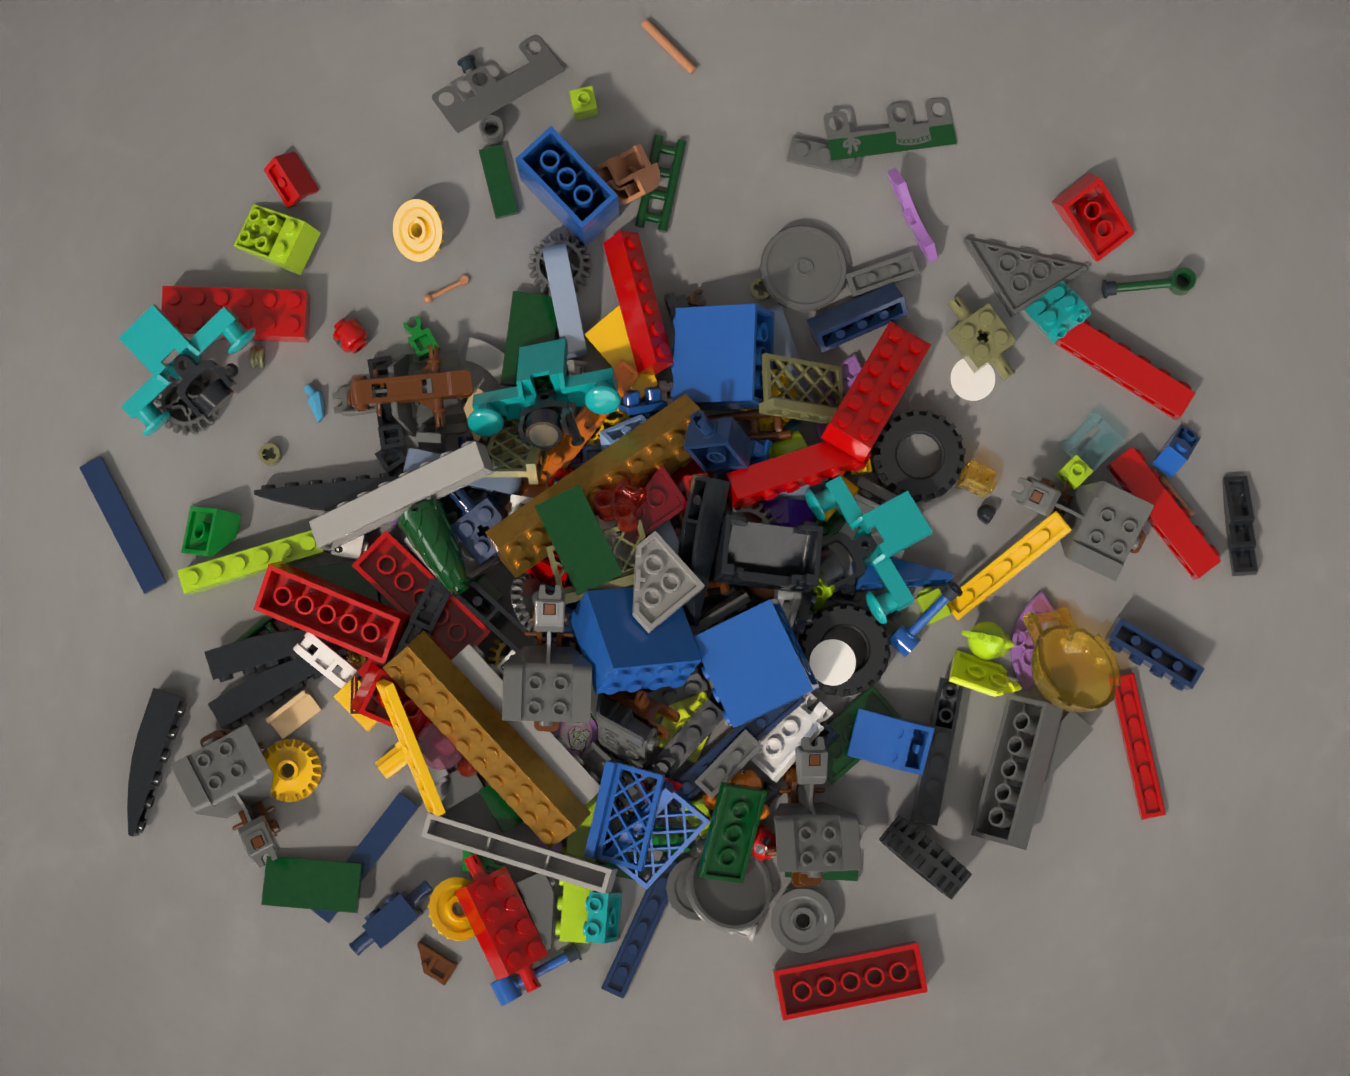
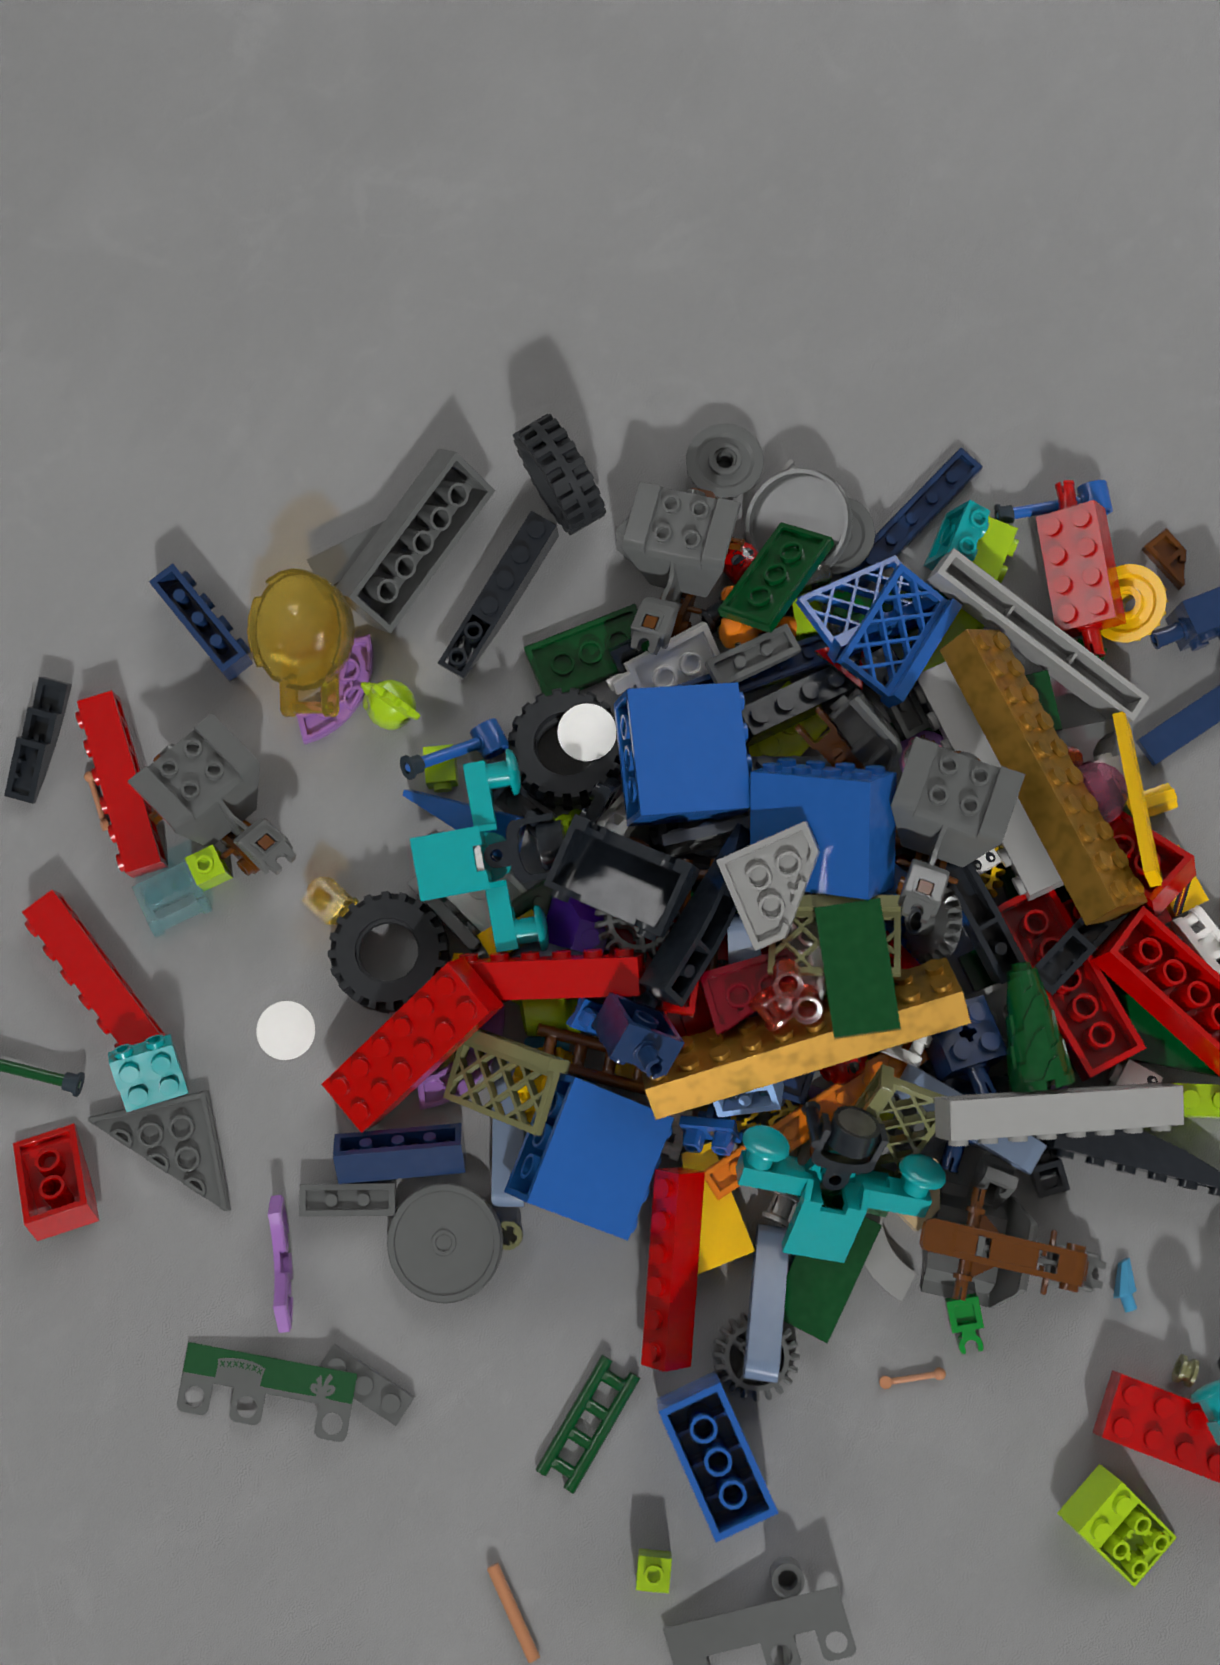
camera: 155 degrees left, 5 degrees down
(269, 446) = (1203, 1226): olive bush -> none
(290, 178) = (1075, 1604): red panel -> none
(350, 335) = (1056, 1358): red head -> none
(390, 430) = (1043, 1206): black slope -> none
(418, 230) = (928, 1469): yellow gear -> none
(498, 181) = (799, 1501): dark green tile -> none
(539, 898) = (1026, 574): dark grey slope -> none
(630, 174) = (628, 1446): nougat brick -> none
(673, 302) = (616, 1250): black piece -> none
(849, 980) = (693, 379): red brick -> none
(890, 741) = (548, 623): blue slope -> none
(981, 323) = (272, 1084): olive brick -> none
(981, 675) = (414, 665): neon yellow tile -> none
(986, 513) = (334, 857): black hinge -> none
(1009, 564) = (325, 782): yellow tile -> none
(1138, 748) = (263, 525): red tile -> none
(1176, 451) = (75, 852): blue slope -> none

